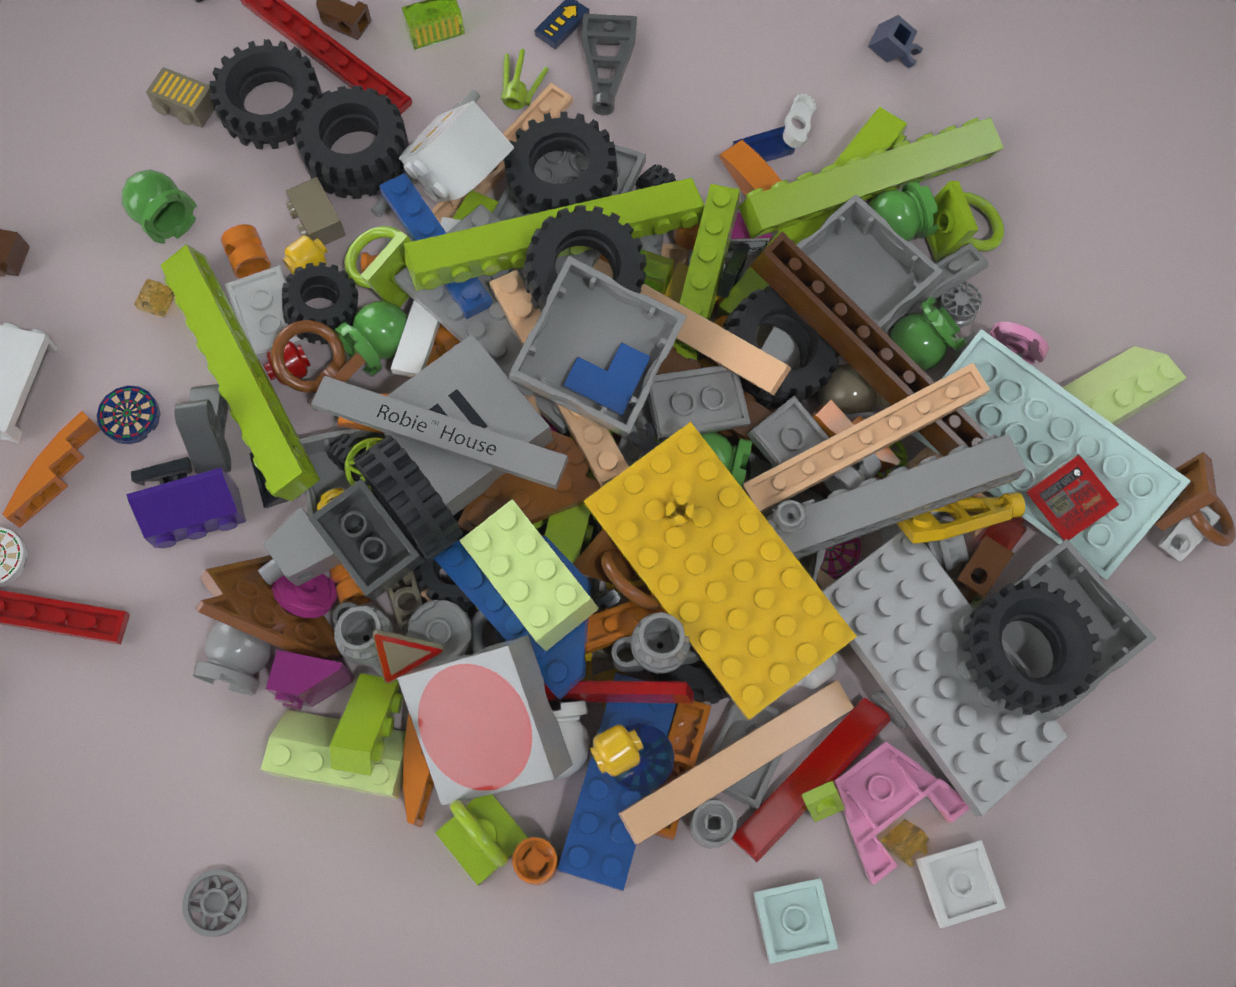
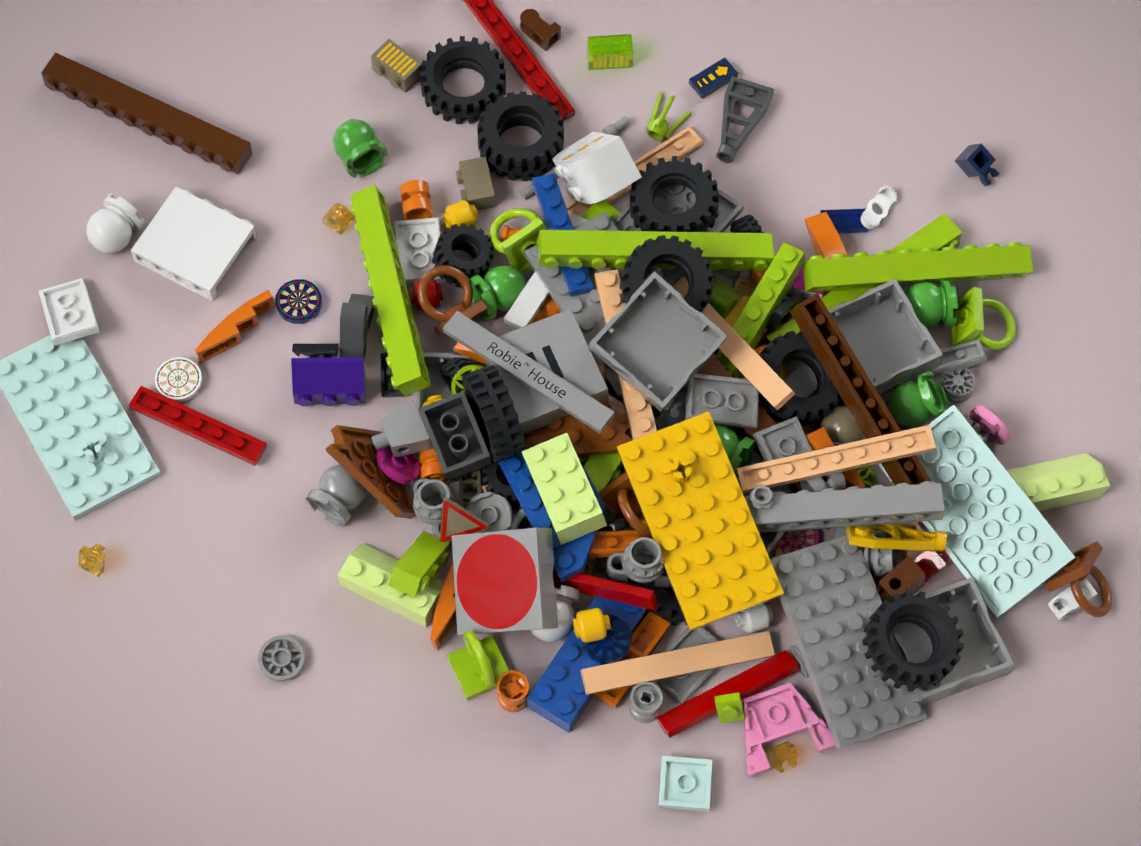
camera: 15 degrees right, 5 degrees down
(305, 679) = (385, 524): magenta slope -> none
(609, 387) = (662, 372): blue tile -> none
(960, 884) = (812, 792): white plate -> none
(1072, 498) = (986, 548): red tile -> none

